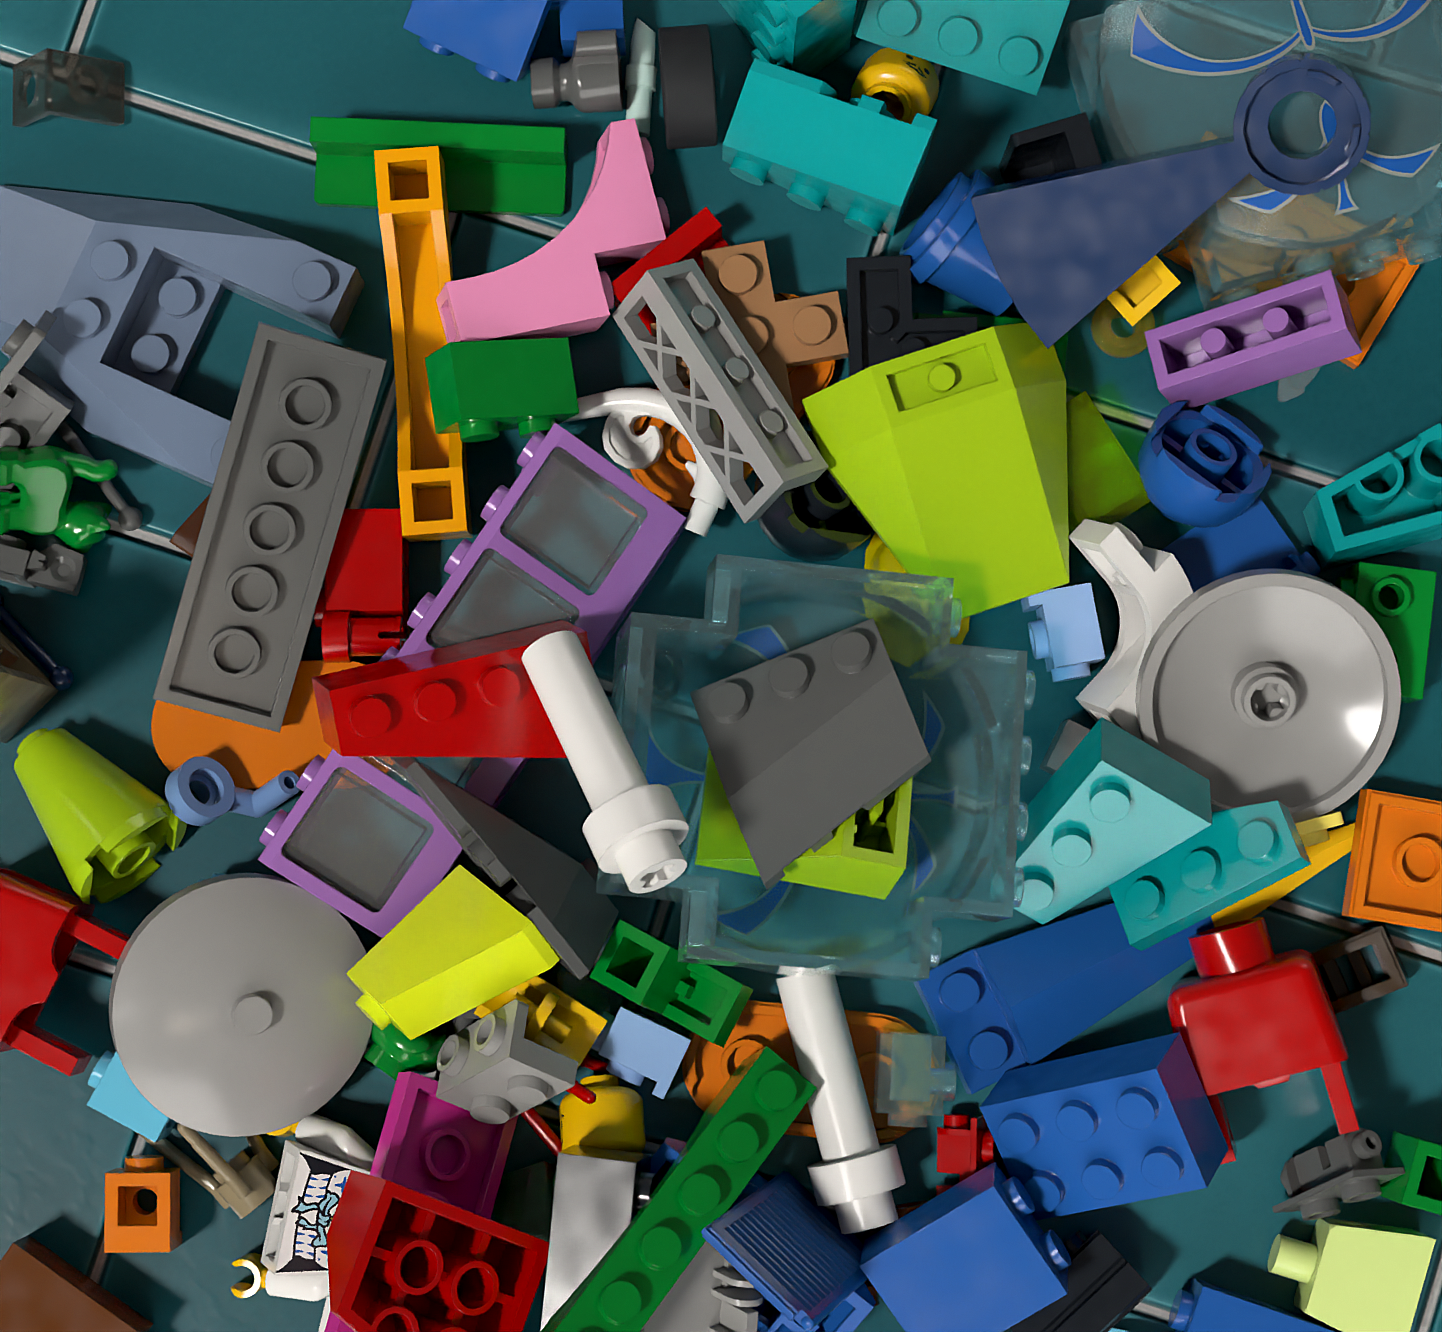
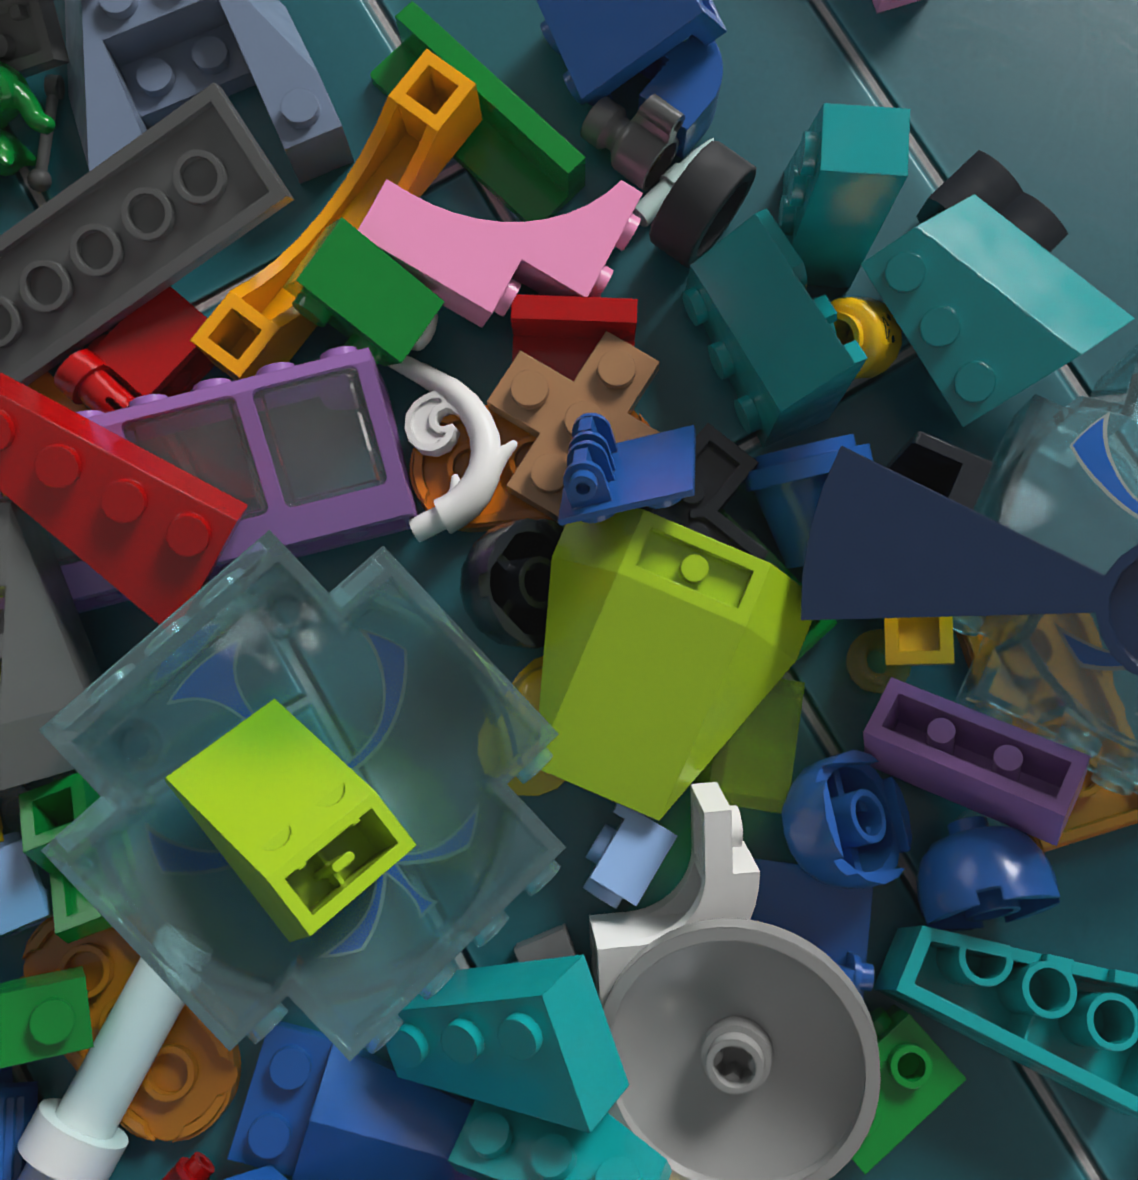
camera: 45 degrees right, 5 degrees down
(632, 823) = (88, 694): white piece -> none
(723, 378) = (529, 432): light grey fence -> none
(809, 742) = (328, 765): dark grey wedge -> none
(827, 349) = (624, 475): none -> blue hinge
(912, 1077) = (186, 1103): clear light blue brick -> none
(1330, 419) = (983, 876): none -> blue cylinder

